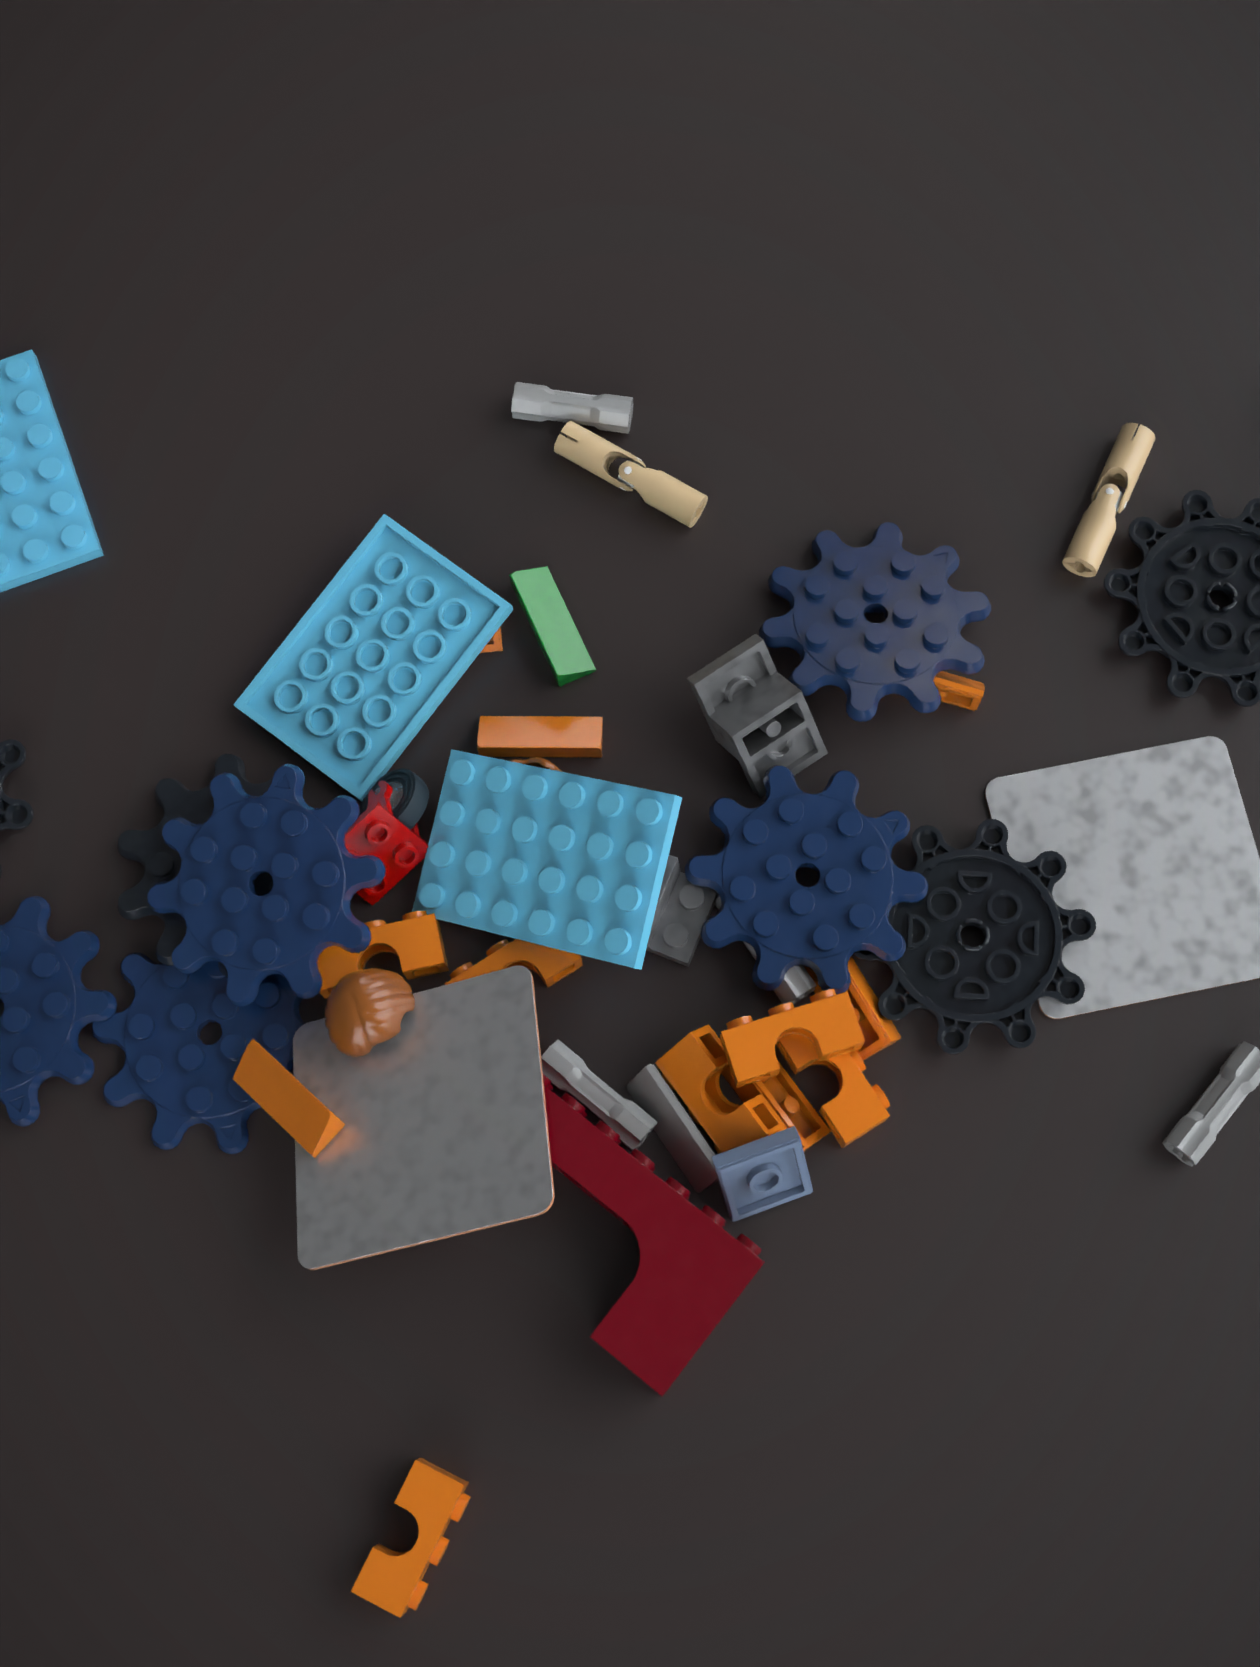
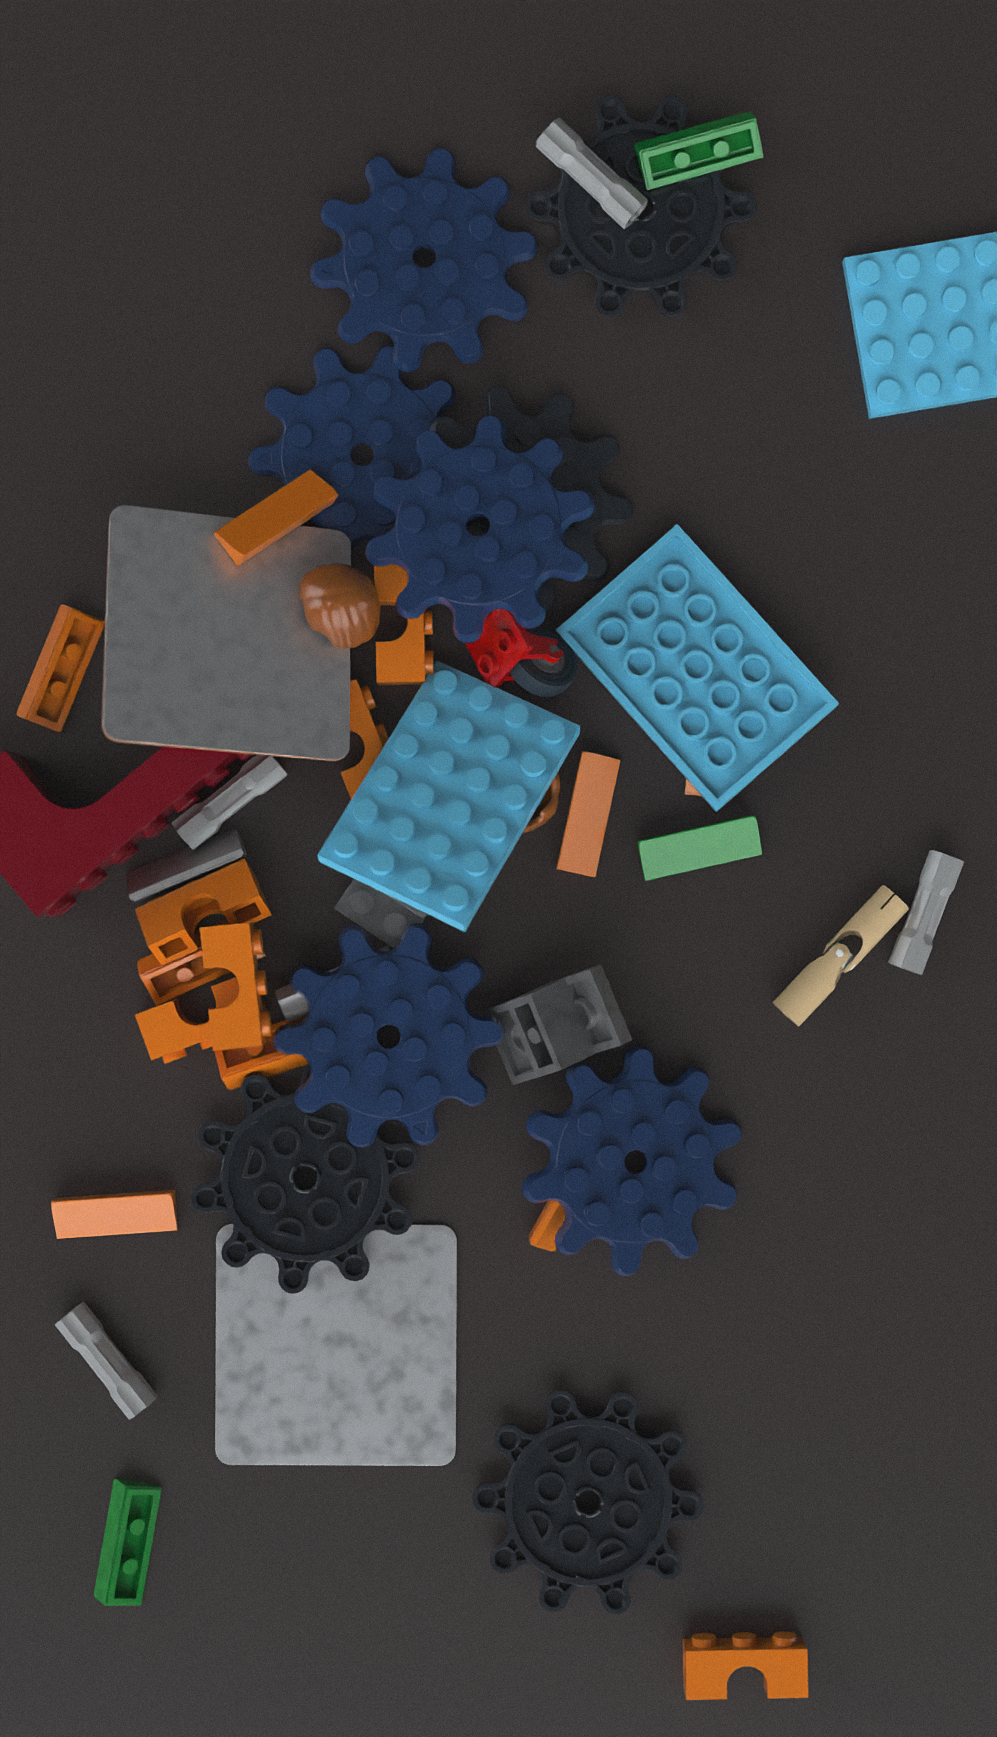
camera: 90 degrees right, 15 degrees up
(491, 1311) = (60, 668): none -> orange slope
(762, 1174) = (123, 934): sand blue plate -> none
(1061, 1128) = (115, 1214): none -> orange slope
(1099, 521) = (691, 1404): tan piece -> none

